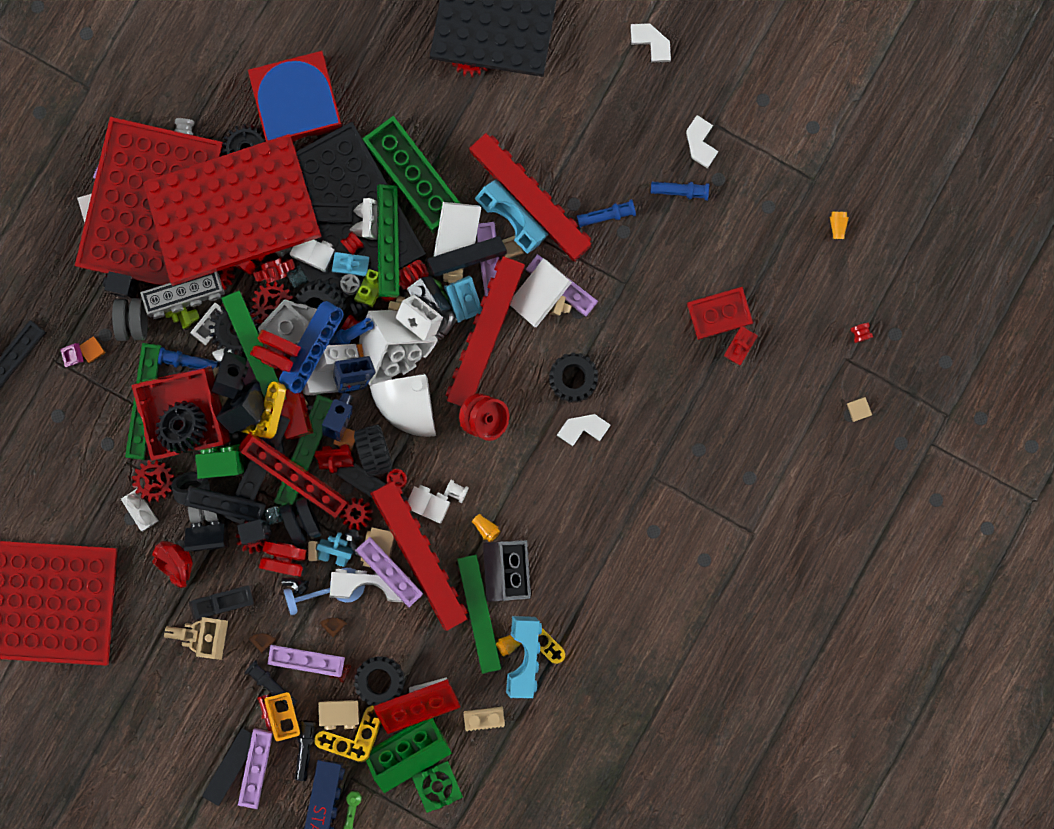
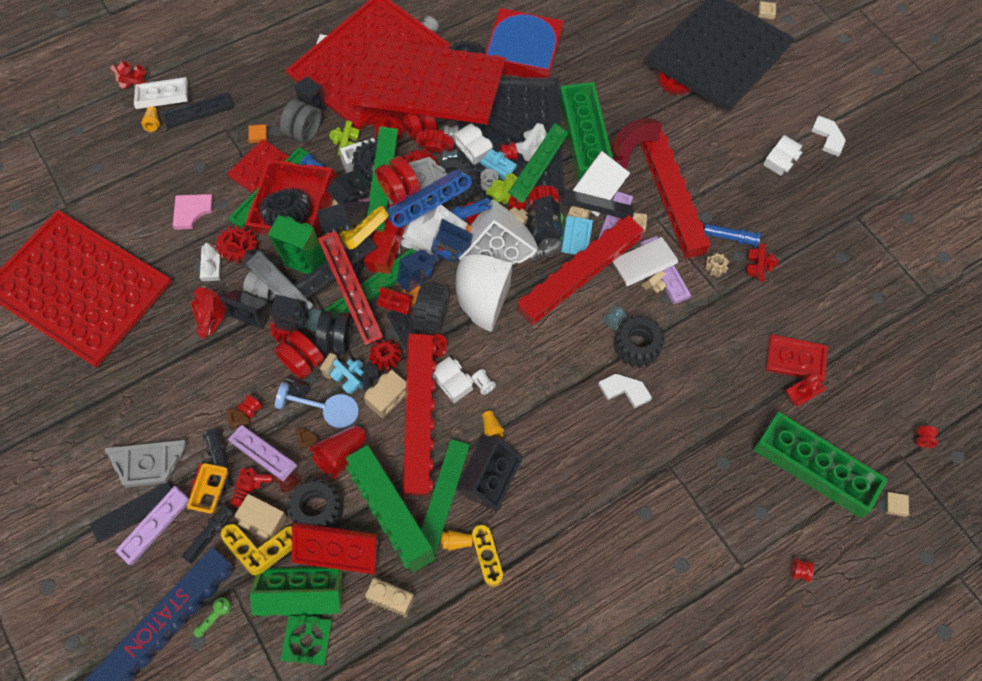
camera: 25 degrees right, 20 degrees down
(72, 355) = (240, 129): magenta tile -> none
(82, 467) = (190, 208): none -> bright pink tile
(114, 383) = (250, 169): none -> red plate
(174, 298) = (351, 119): light grey brick -> none
(205, 637) = (190, 386): tan brick -> none
(212, 722) = (146, 462): none -> light grey wing
(221, 602) = (223, 366): black slope -> none
(267, 626) = (249, 406): none -> red wheel
(309, 691) = (246, 483): none -> red piece
(345, 583) = (338, 405): white arch -> none
(369, 622) = (332, 452): none -> red cone
(389, 572) = (383, 413): lavender tile -> none
(419, 317) = (532, 222): white brick -> none
(443, 650) = (390, 509): none -> green brick
(462, 165) = (631, 135): none -> dark red arch
(484, 416) = (543, 329): red wheel -> none
(497, 199) = (658, 212): medium azure arch -> none
(522, 681) = (446, 580): medium azure arch -> none
(540, 364) = (614, 318): none -> clear light blue wheel
(607, 251) = (716, 264): none -> tan gear
(616, 94) = (782, 155): none -> white brick
(643, 224) = (764, 262): none -> red hips
(690, 190) = (814, 251): blue pin -> none
(700, 150) = (837, 215): white tile -> none
(780, 412) = (821, 465): none -> green brick
(803, 513) = (802, 570): none -> red wheel
(839, 223) = (940, 336): light orange cone -> none

